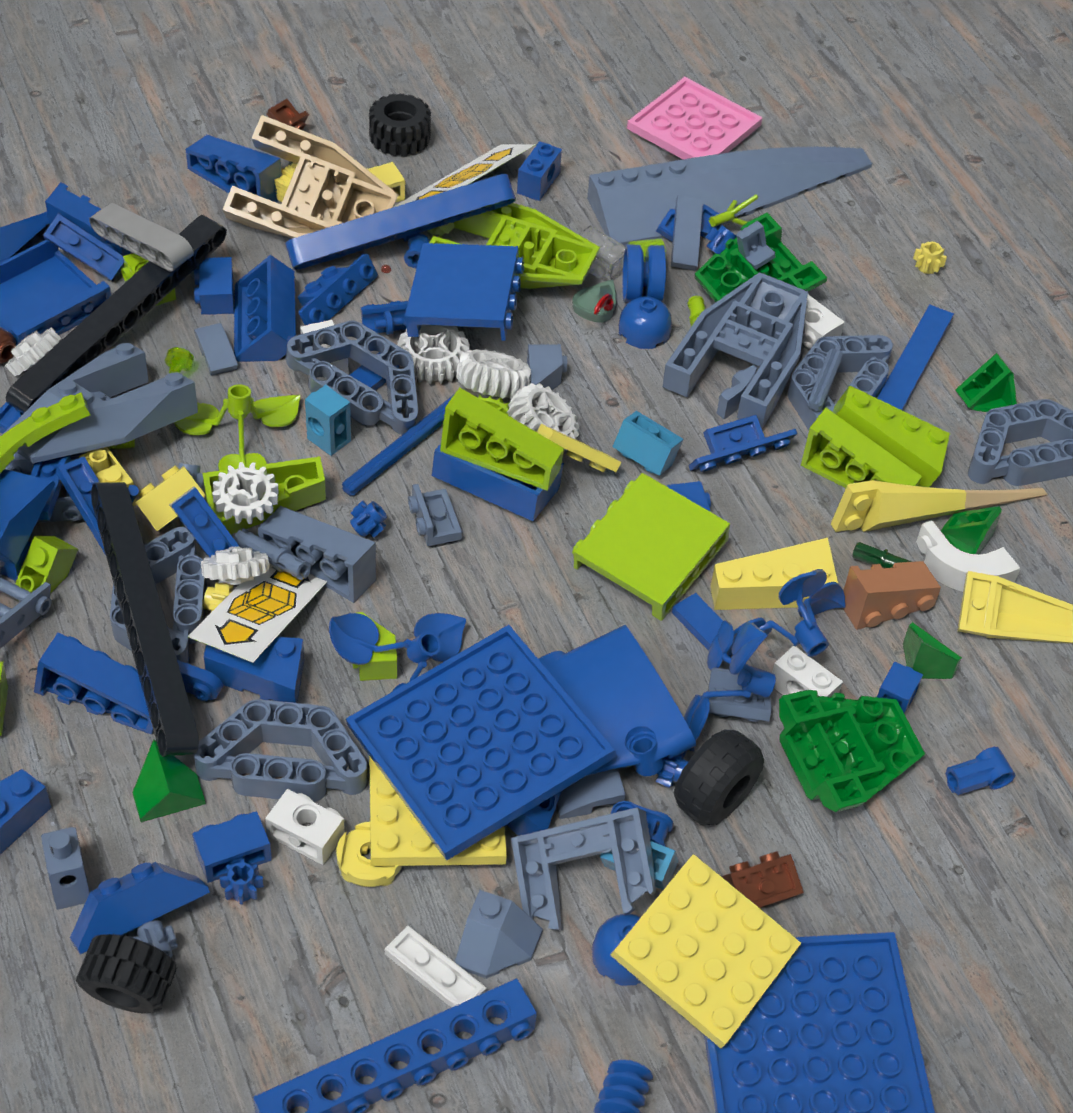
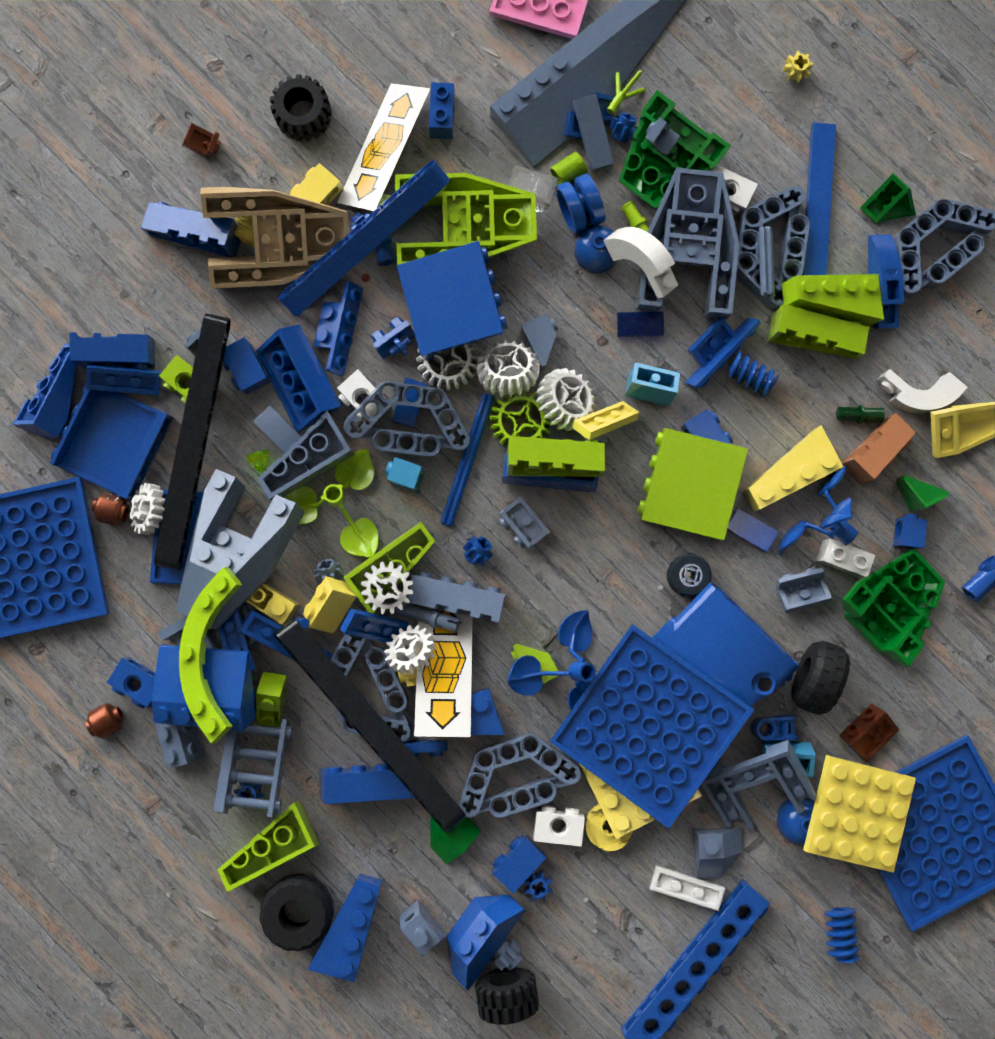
camera: 20 degrees left, 35 degrees up
(141, 236) = (170, 367): light grey beam -> none
(253, 366) = (306, 459): none -> sand blue wedge
(596, 302) = (550, 240): sand green piece -> none
(601, 619) = (681, 575): none -> black wheel
(661, 399) = (640, 324): none -> clear blue plate
(696, 322) = (647, 253): none -> white arch
(730, 397) = (698, 288): sand blue slope -> none
(749, 678) = (815, 586): blue plant -> none
(767, 478) = (752, 375): none -> blue piece
(885, 504) = (854, 371): light yellow plate -> none
(961, 448) = (885, 261): none -> blue slope
(972, 529) = (917, 360): green slope -> none

